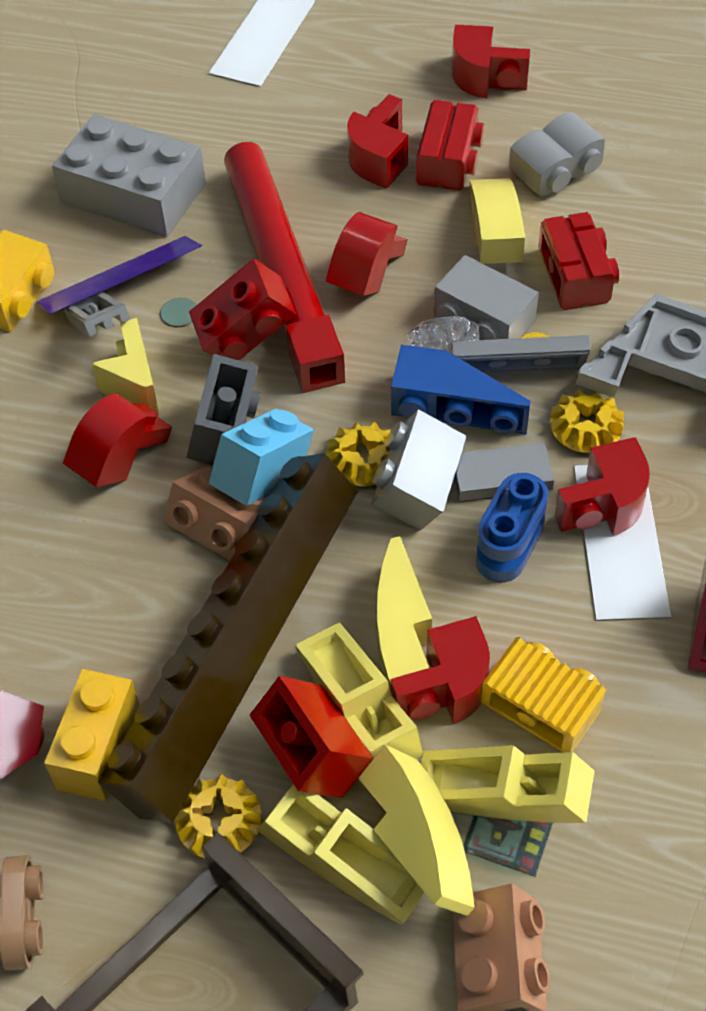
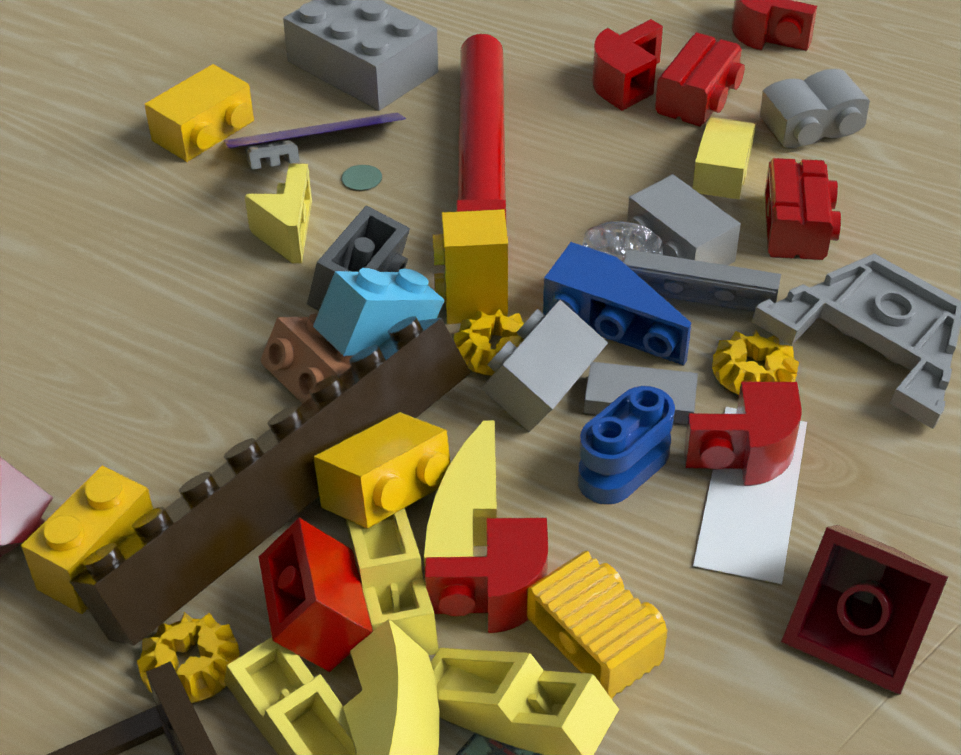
camera: 15 degrees right, 10 degrees down
(109, 439) = (233, 264): red brick -> none
(242, 311) = (418, 178): red brick -> none
(322, 605) = (382, 469): none -> yellow brick
(326, 387) = (474, 263): none -> yellow brick
(363, 254) = (567, 153): red brick -> none

